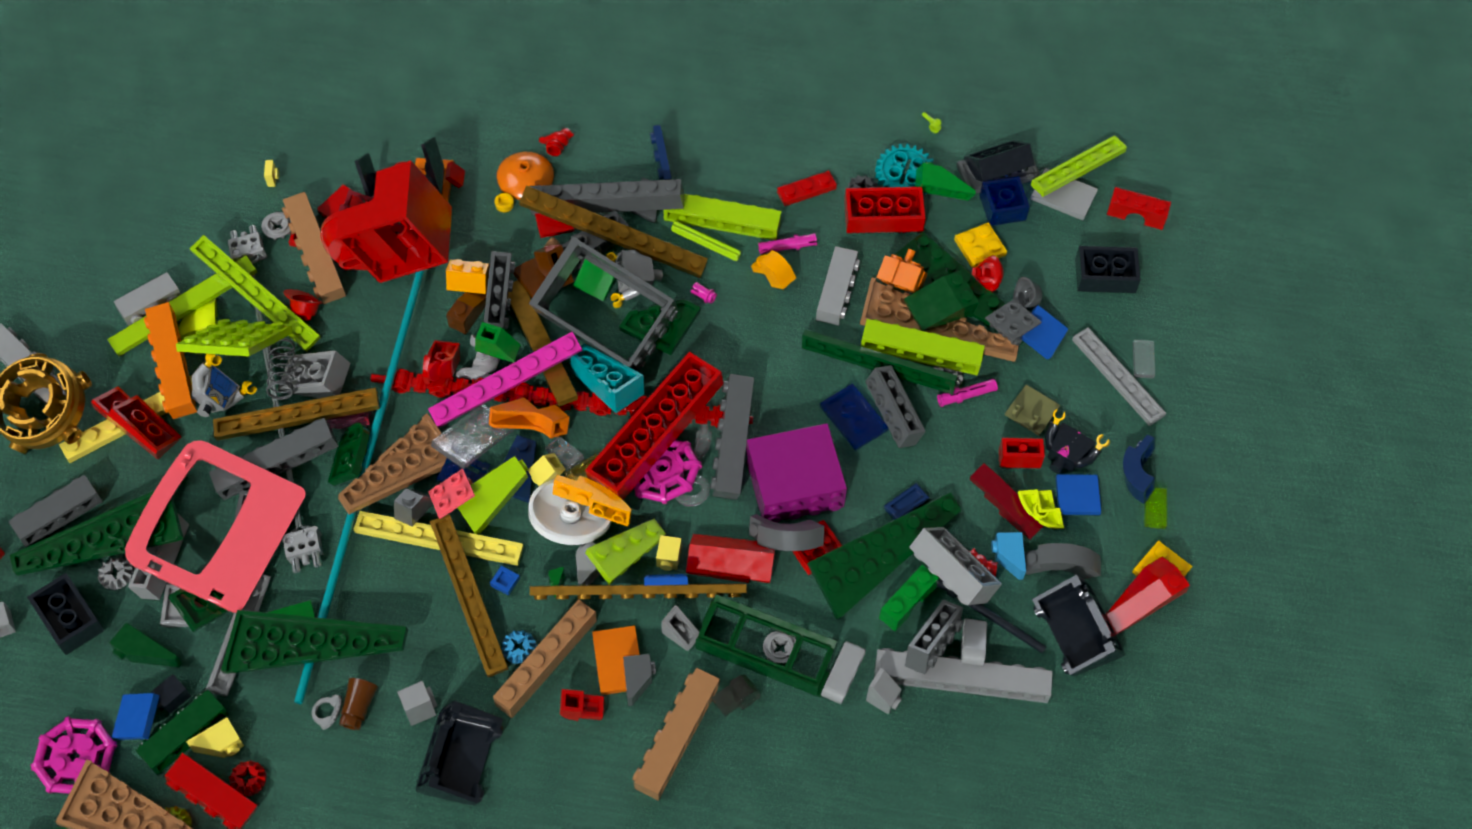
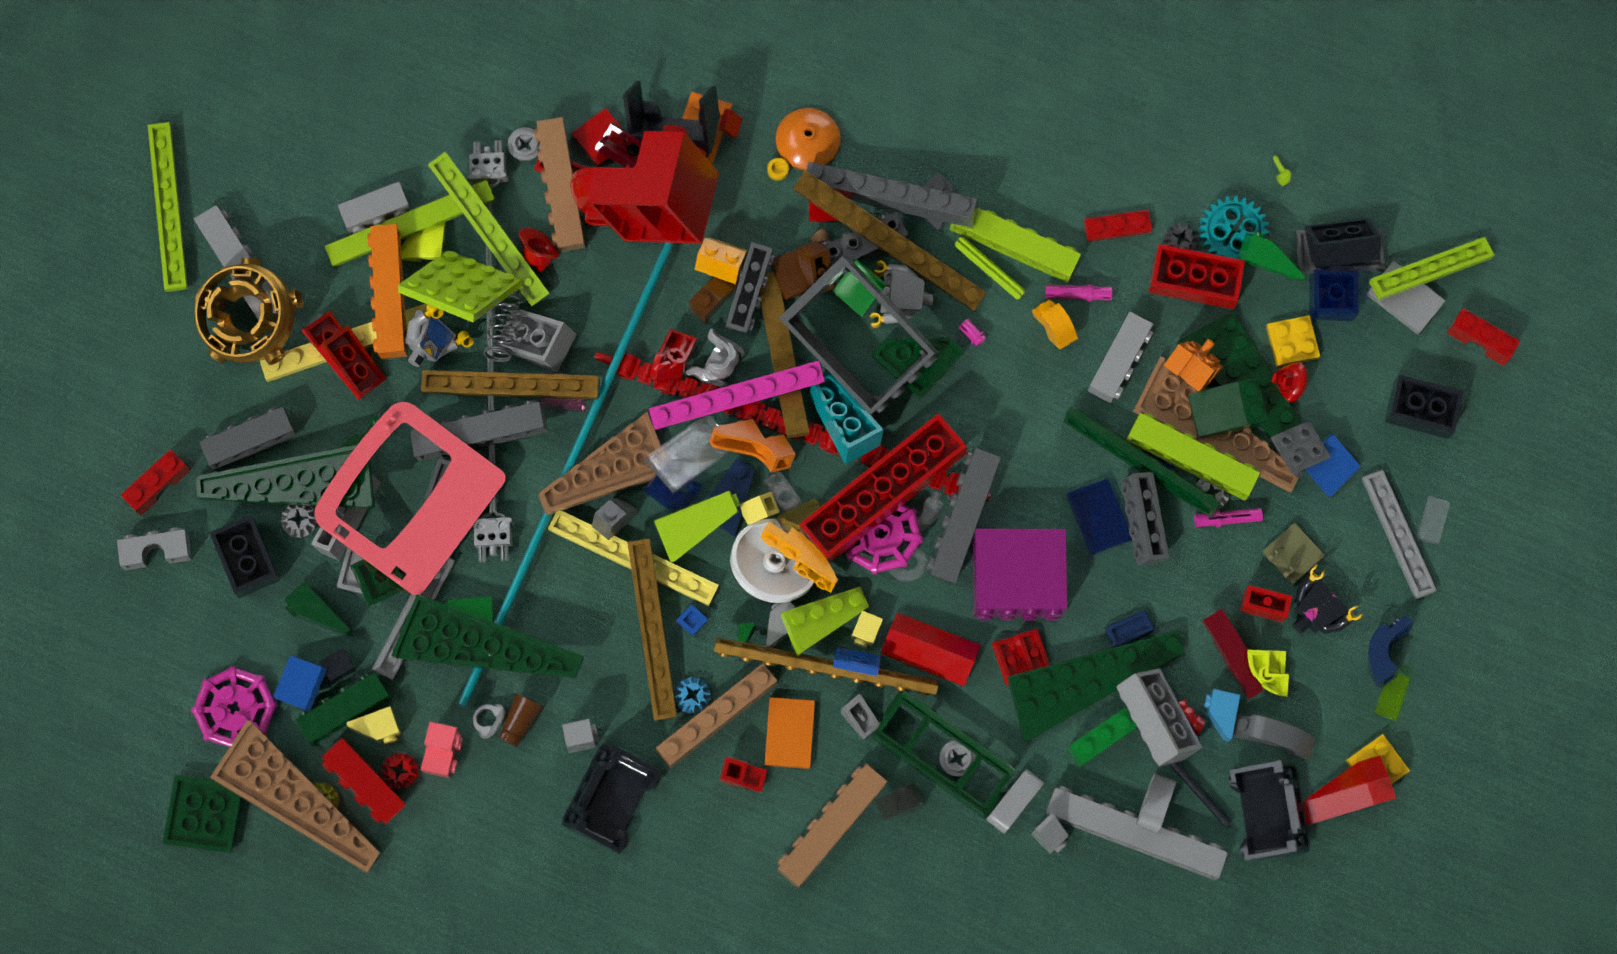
camera: 10 degrees right, 15 degrees up
(271, 173) = (529, 77): light yellow plate -> none
(284, 743) = (441, 748): none -> coral brick
(349, 454) = (558, 443): dark green plate -> none
(451, 493) = (655, 516): coral hinge -> none
(496, 342) = (735, 356): green slope -> none
(556, 141) = (851, 105): red animal -> none
(638, 675) = (805, 758): dark grey slope -> none
(660, 154) = (963, 151): dark blue wing -> none
(786, 537) = (991, 644): dark grey arch -> none
(934, 637) = (1116, 790): dark grey brick -> none
(1027, 293) = (1326, 417): dark grey helmet -> none
(1078, 494) = (1314, 661): blue tile -> none

